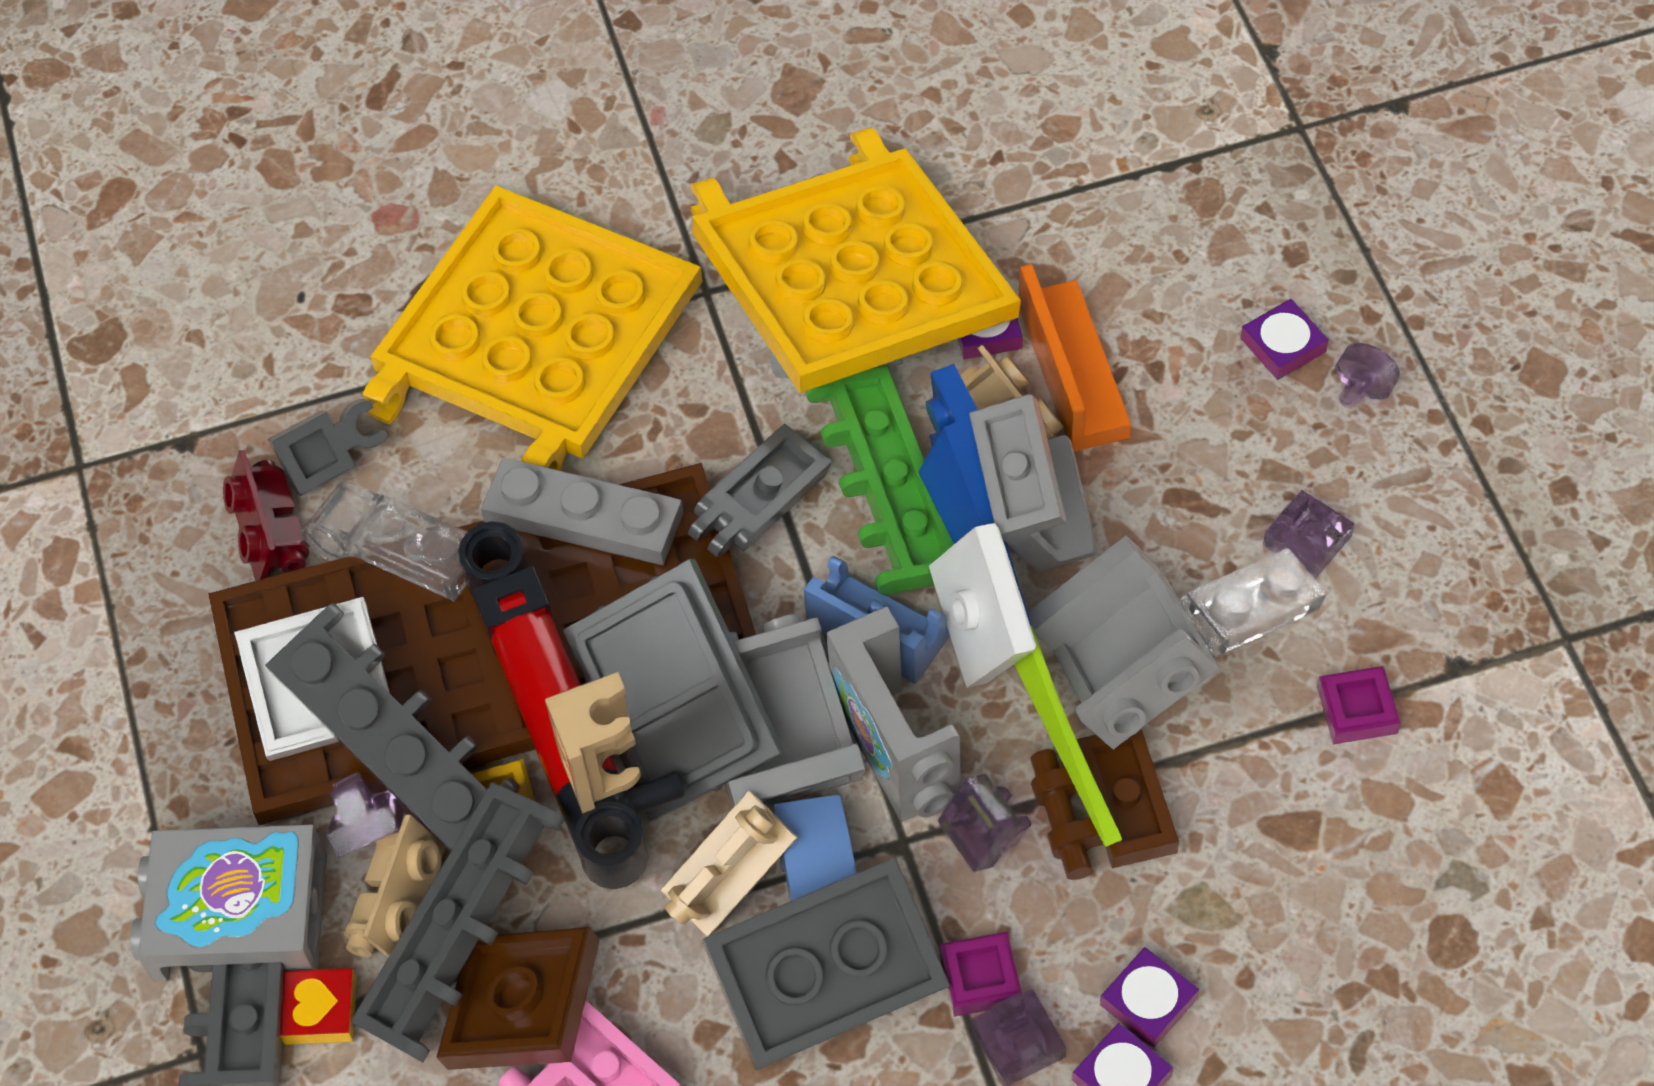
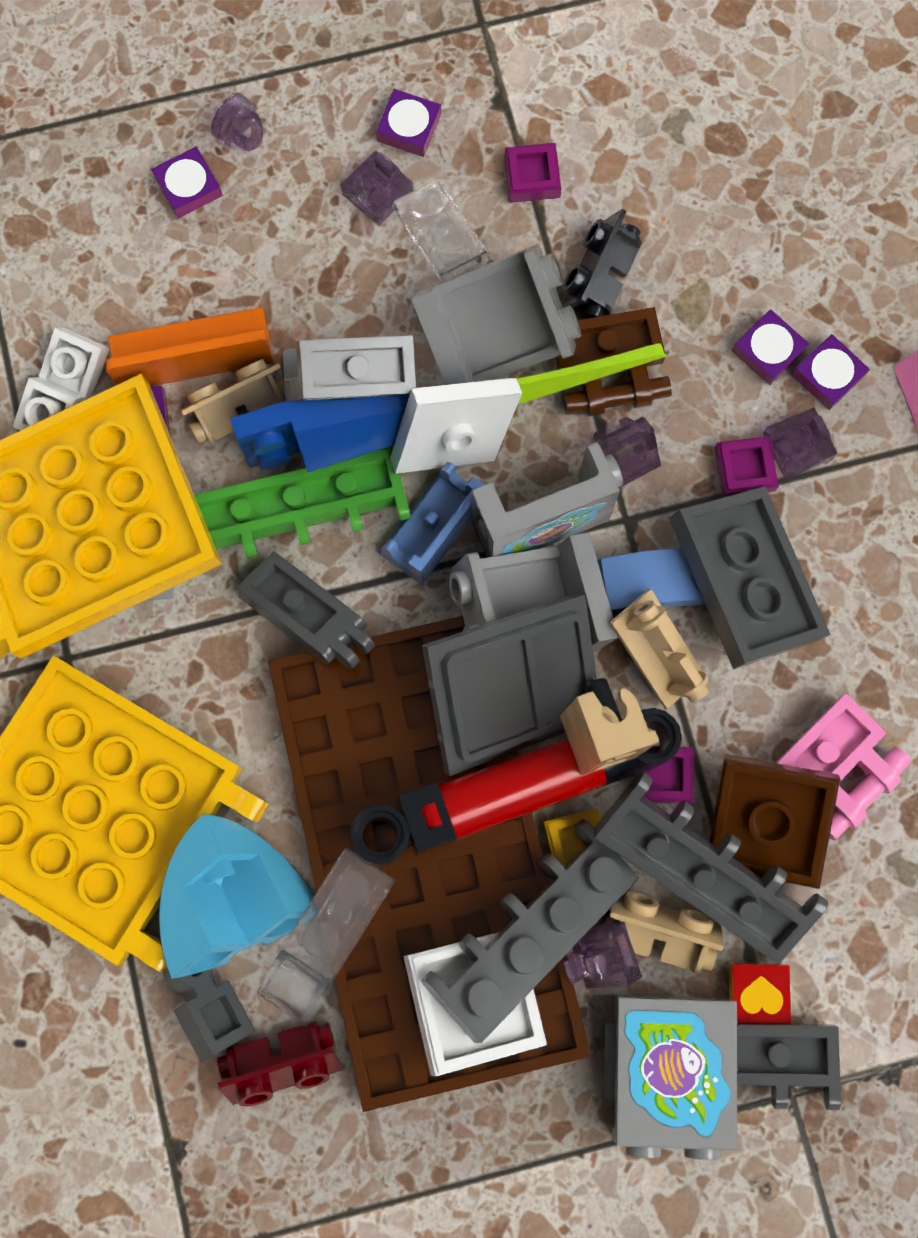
camera: 90 degrees left, 20 degrees up
(439, 441) = (225, 896): none -> medium azure brick
(574, 899) = (672, 780): none -> magenta tile
(583, 511) = (313, 764): light grey plate -> none
(1013, 244) = (65, 379): none -> white slope
(1257, 790) = (608, 248): none -> black hinge
(1403, 561) = (408, 122): none -> tile

